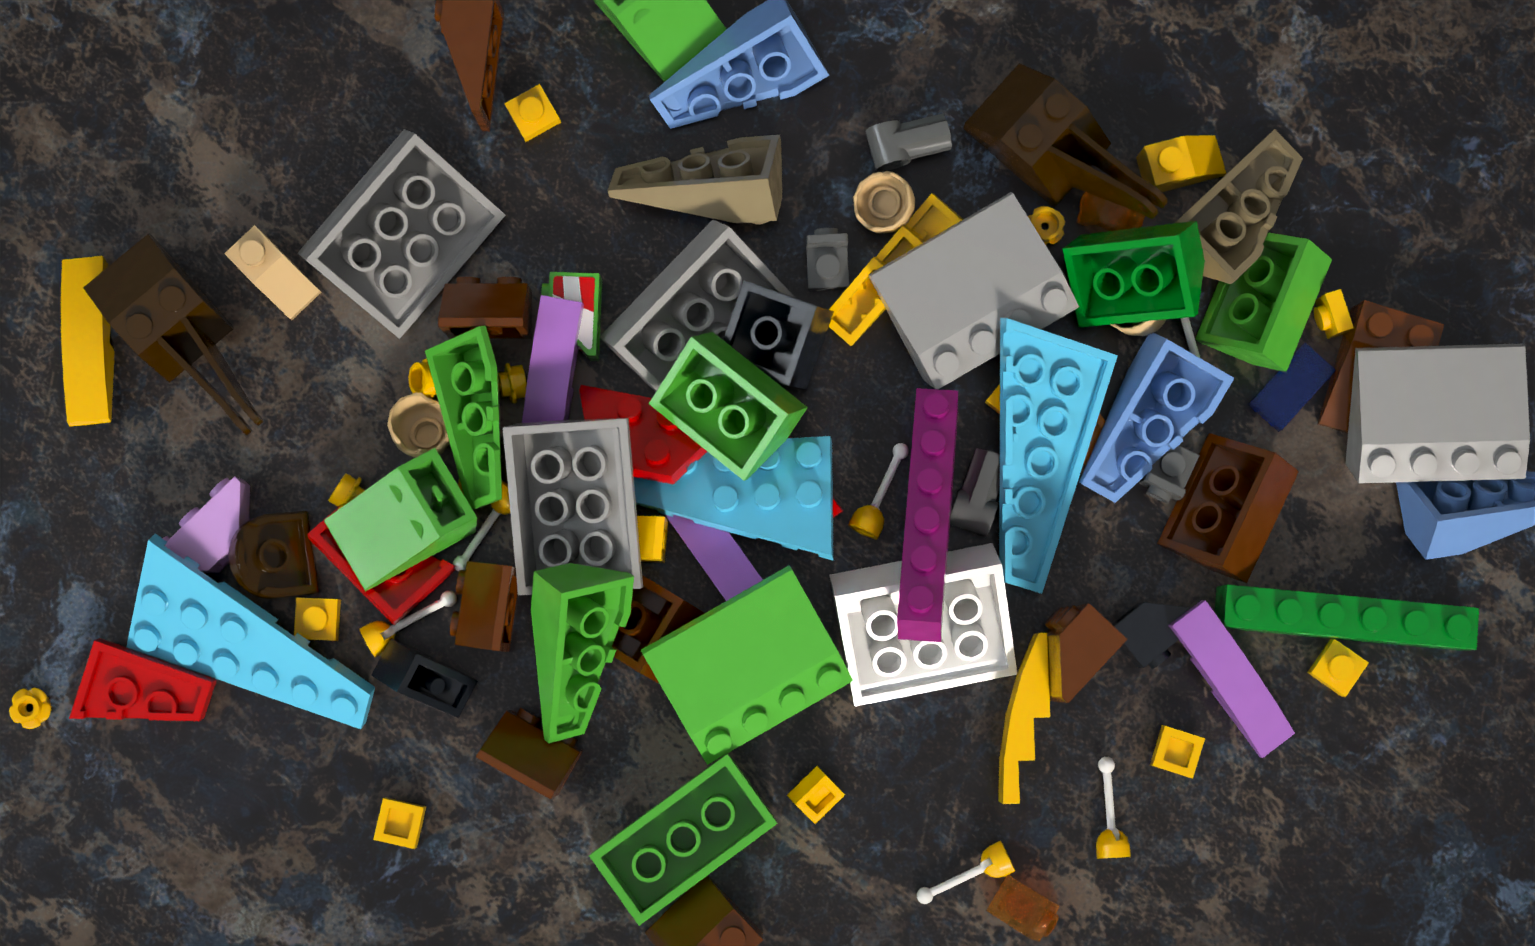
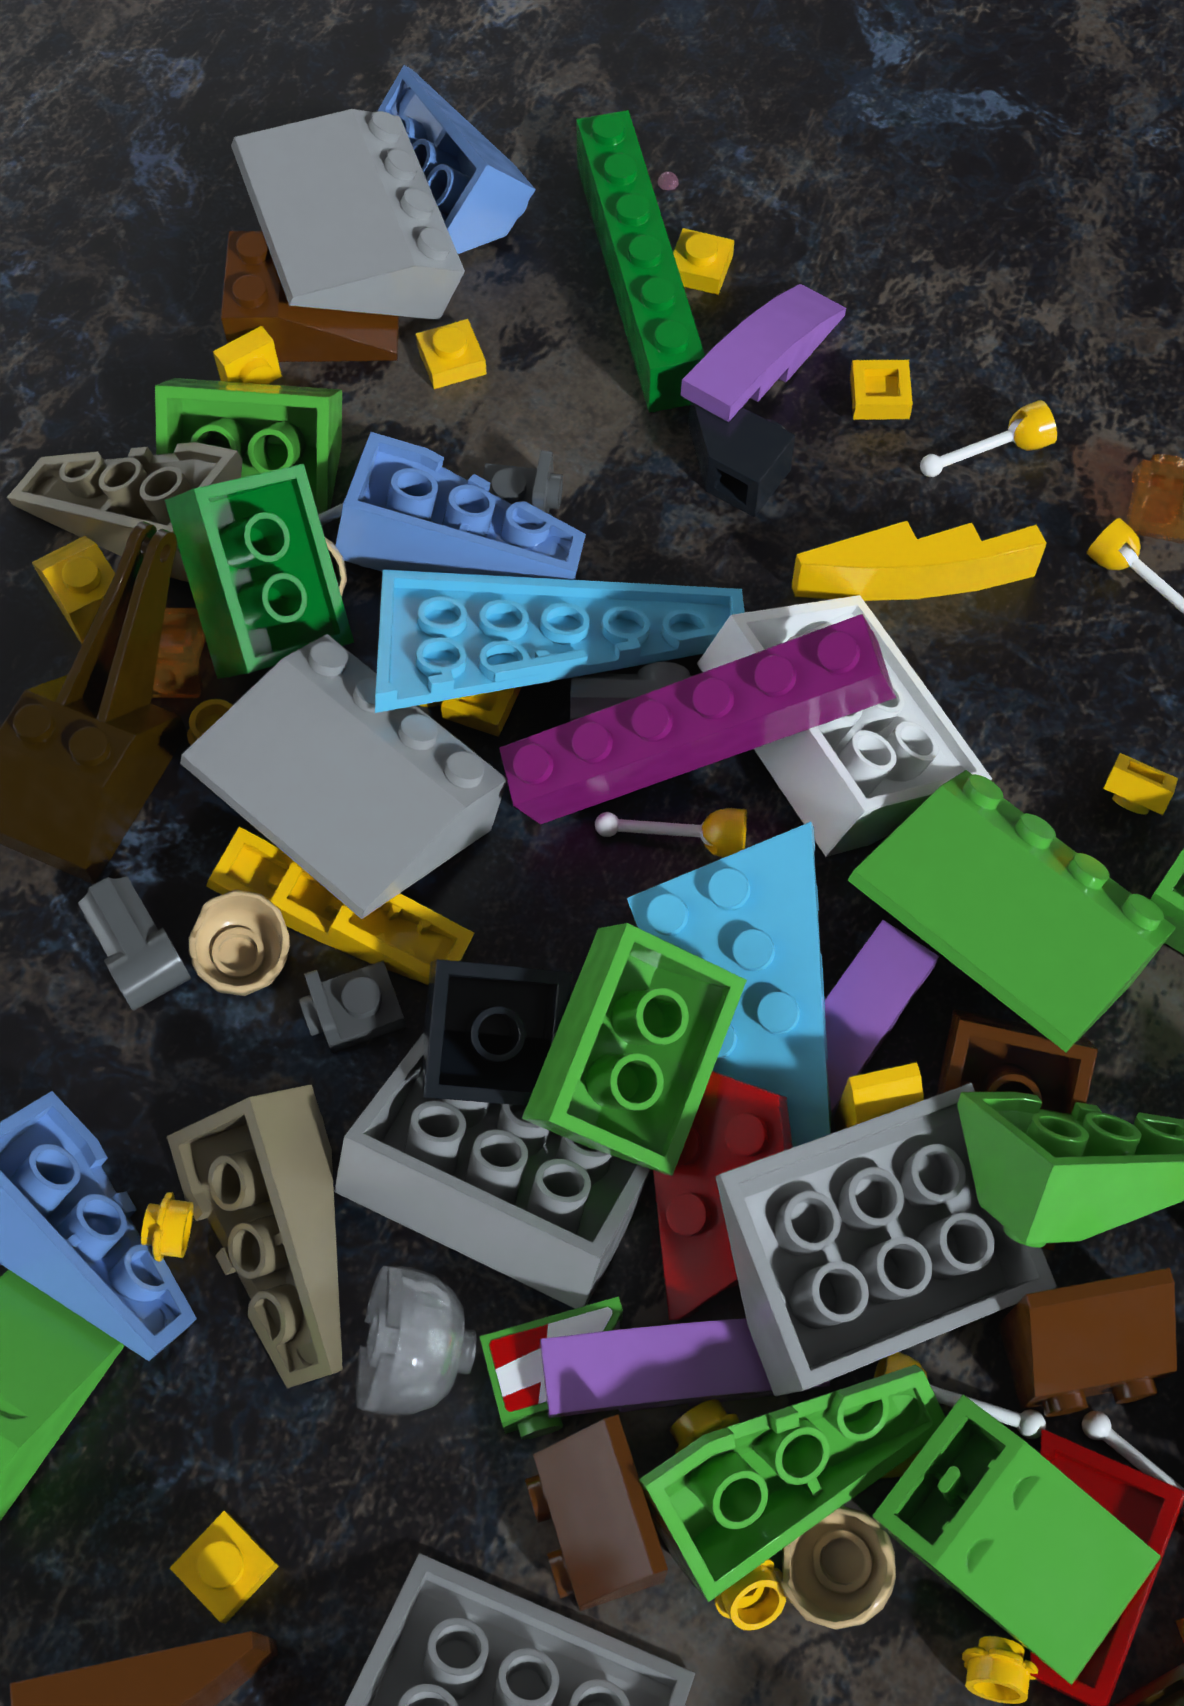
camera: 105 degrees left, 20 degrees down
(608, 237) = (412, 1343): none -> clear cylinder
(724, 123) = (167, 1227): none -> yellow plate
(1078, 648) = (813, 488): reddish brown slope -> none
(1229, 507) = (534, 401): reddish brown slope -> none
(1291, 390) = (368, 393): clear blue tile -> none
(1310, 459) = (451, 353): none -> yellow plate
(1427, 672) = (668, 181): none -> clear pink piece

